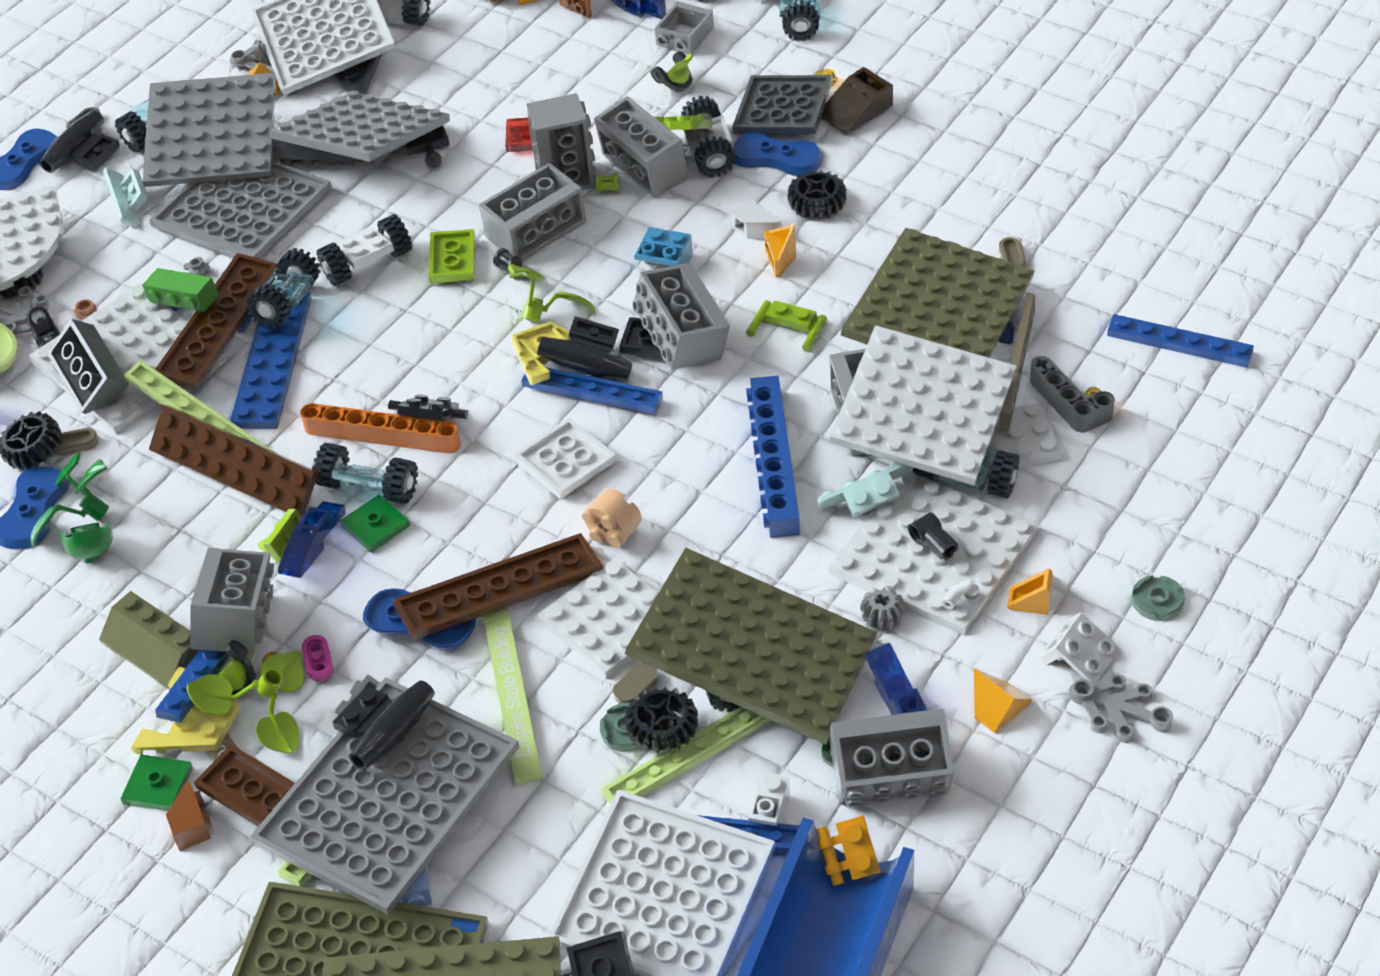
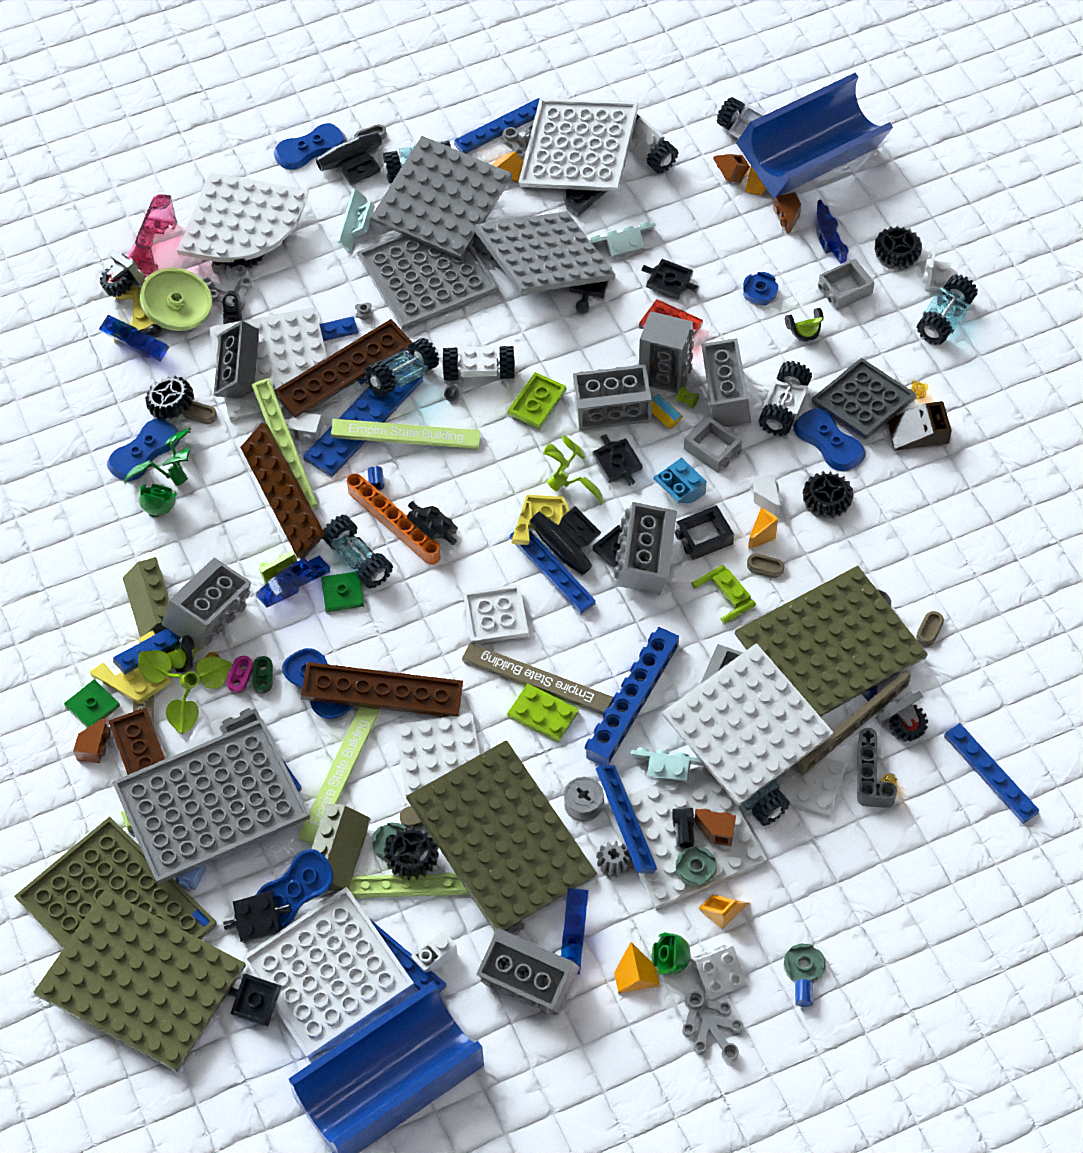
camera: 30 degrees right, 10 degrees up
(84, 308) = (270, 306): nougat plate -> none
(180, 289) = (331, 332): bright green brick -> none
(214, 392) = (305, 427): none -> white slope
(220, 57) = (496, 127): none -> blue plate
(328, 397) = (376, 477): none -> blue piece
(331, 348) = (405, 433): none -> yellowish green tile
(349, 648) = (262, 676): none -> dark green plate
(359, 291) = (448, 391): none -> dark grey hinge
(381, 721) = (236, 750): black plate -> none
(433, 88) = (625, 241): none -> light aqua bracket
(505, 99) = (669, 278): none -> black plate
(508, 259) = (570, 427): black bush -> none
(533, 883) = (257, 916): none -> black plate
(550, 848) = (305, 879): none -> blue plate
(571, 763) = (341, 841): none -> olive slope
(580, 266) = (617, 460): none -> black plate
(599, 206) = (665, 412): none -> slope
(602, 67) = (758, 296): none -> blue plate
(611, 518) = (486, 683): light nougat brick -> none
(667, 220) = (708, 425): none -> light grey window
(668, 491) = (541, 679): none -> dark tan tile
(685, 122) = (764, 379): lime plate -> none
(690, 520) = (543, 712): none -> lime plate
(733, 268) = (713, 514): none -> black window
(803, 571) = (583, 788): none -> light grey piece
(807, 282) = (765, 565): none -> dark tan tile
(857, 848) = (455, 1020): light orange plate -> none
(874, 564) = (626, 819): none -> blue plate
(965, 587) = (668, 877): white arm -> none
(967, 517) = (716, 826): none -> dark orange slope
(976, 554) = (693, 877): none -> sand green tile
(1021, 659) = (671, 954): none -> green cylinder
(1061, 332) = (905, 717): none -> plate
(1183, 621) = (803, 993): none -> blue piece

